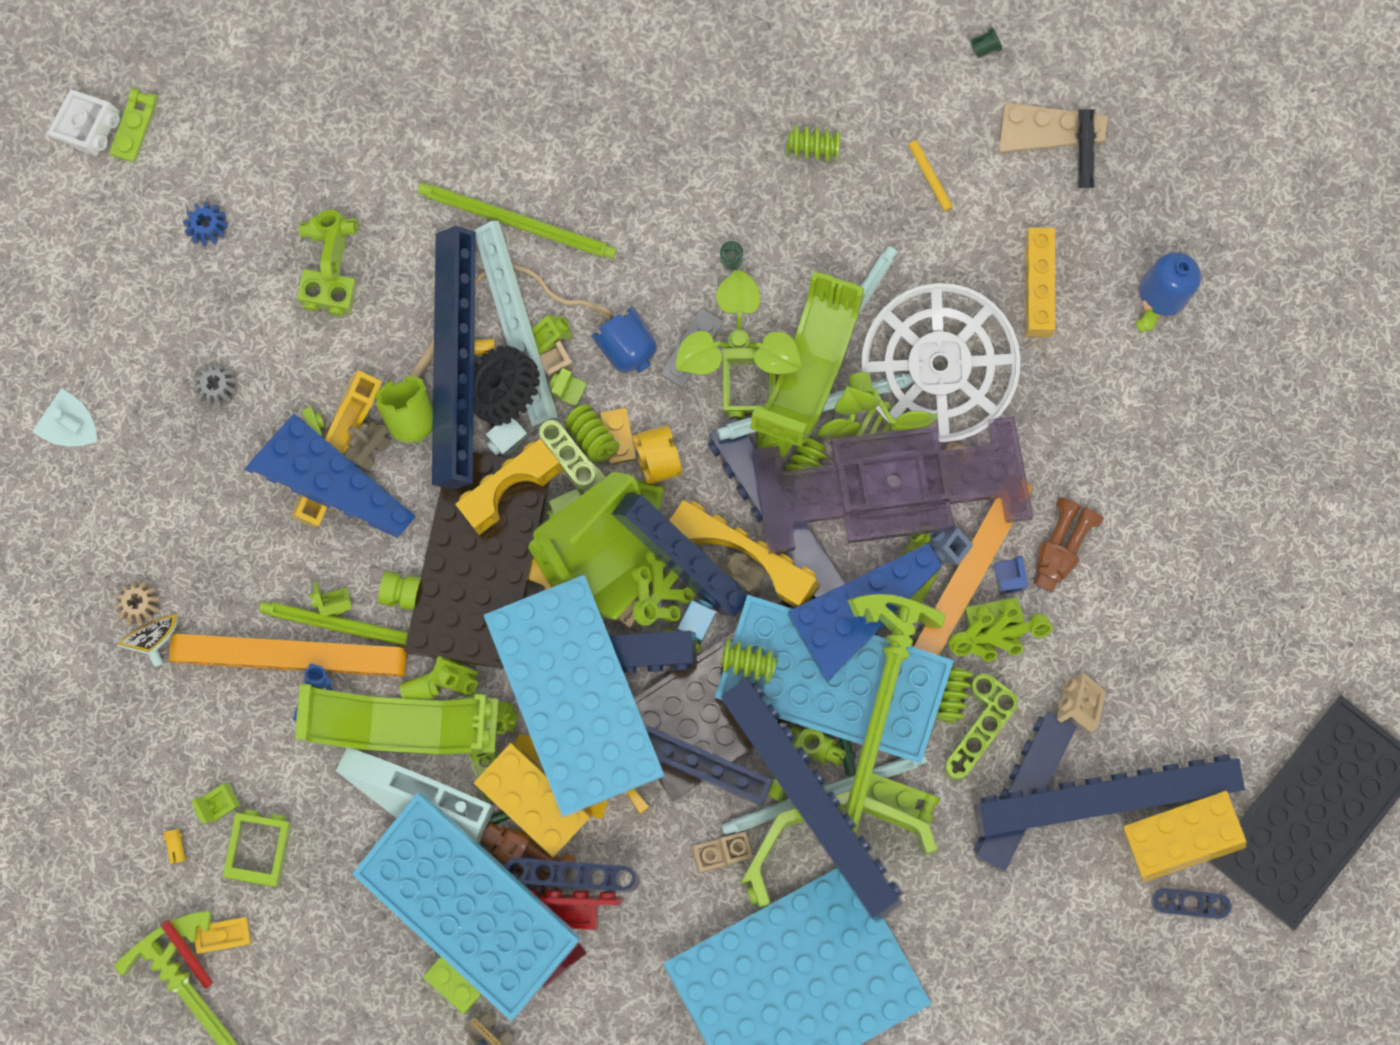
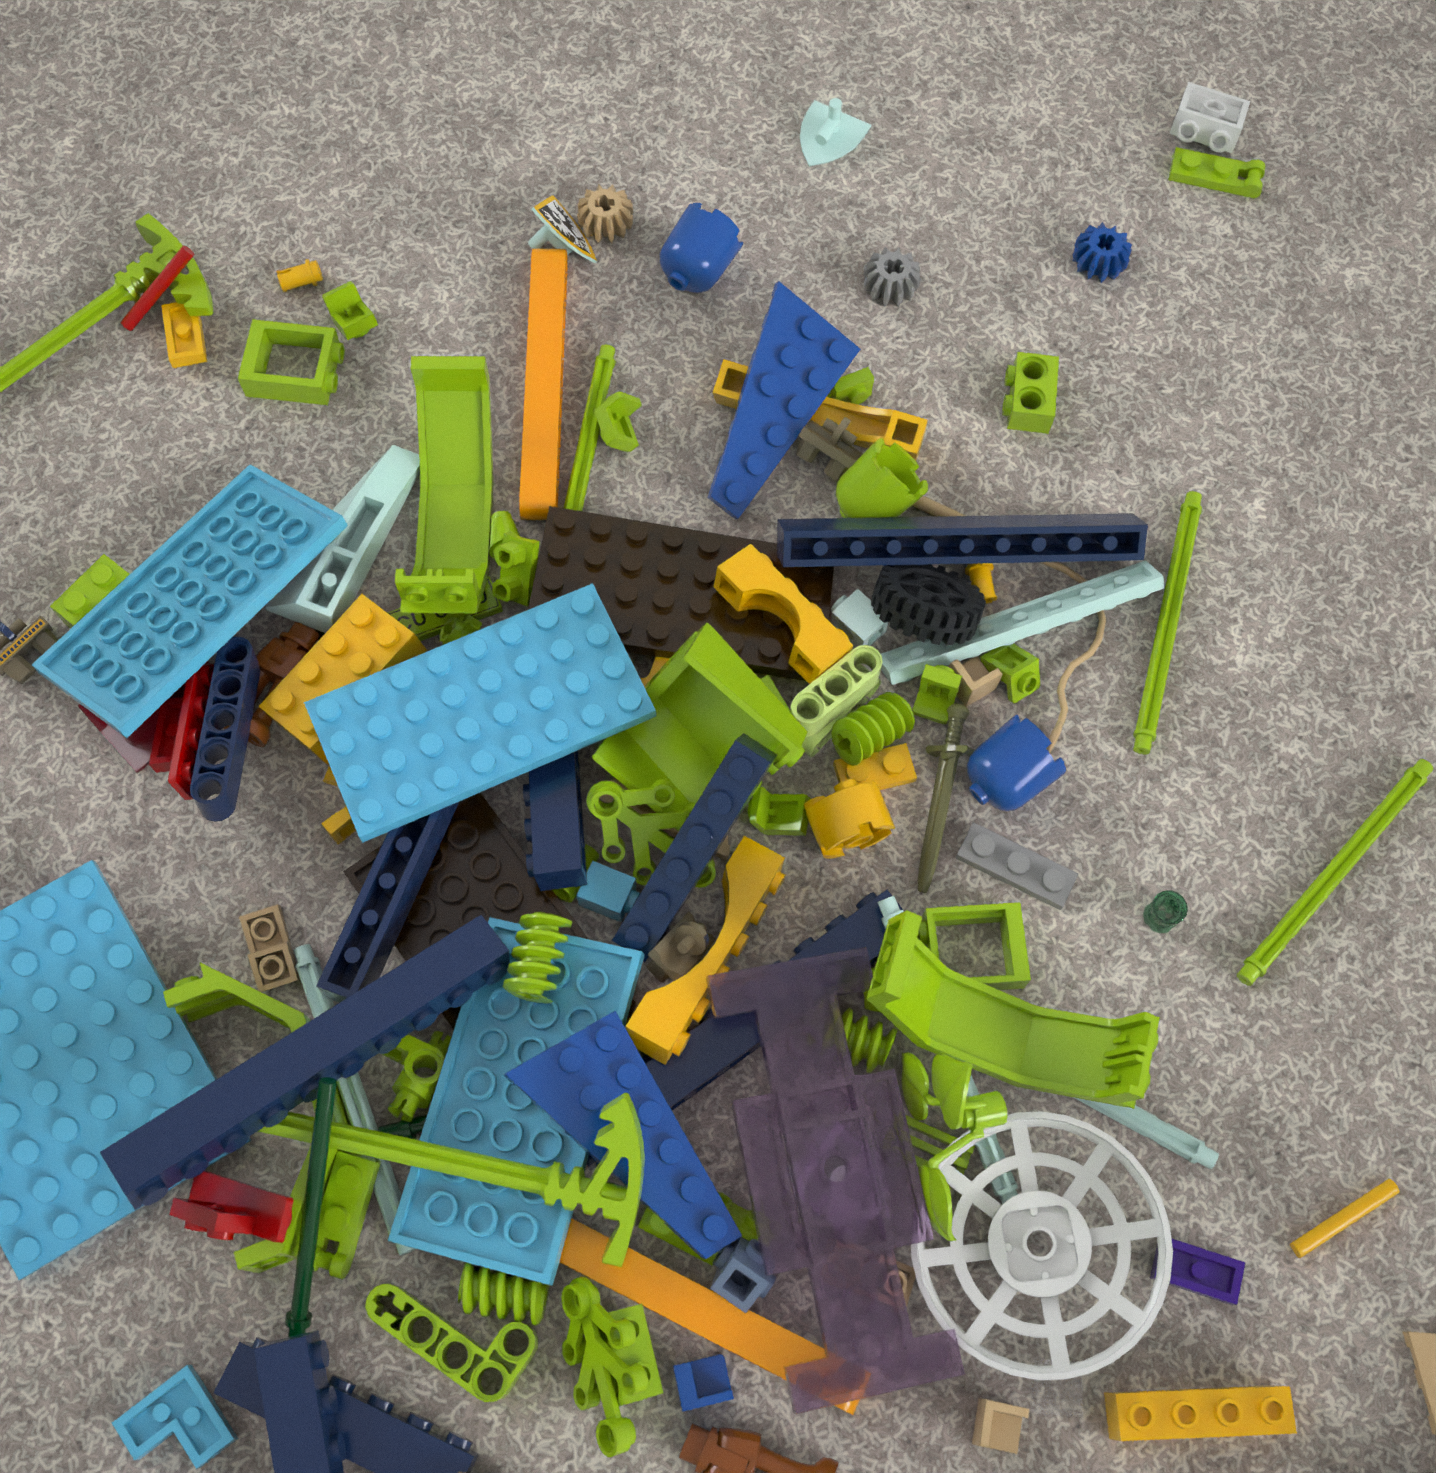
camera: 85 degrees right, 10 degrees down
(186, 531) = (699, 249): none -> blue cylinder
(316, 677) = (504, 397): blue plant -> none
(333, 231) = (1111, 389): lime piece -> none
(398, 590) = (635, 495): lime wheel -> none
(624, 387) = (946, 771): none -> olive sword
(707, 139) = (1329, 878): none -> lime piece
(738, 295) = (1016, 974): lime plant -> none
(813, 143) = (1360, 1025): lime piece -> none
(900, 851) = (231, 1206): none -> red bracket
(959, 266) = (1204, 1272): none -> dark purple plate
(962, 823) = (299, 1317): none -> dark green bar
(1012, 894) = (178, 1408): none -> medium azure plate
(1042, 401) = (998, 1425): none -> tan panel

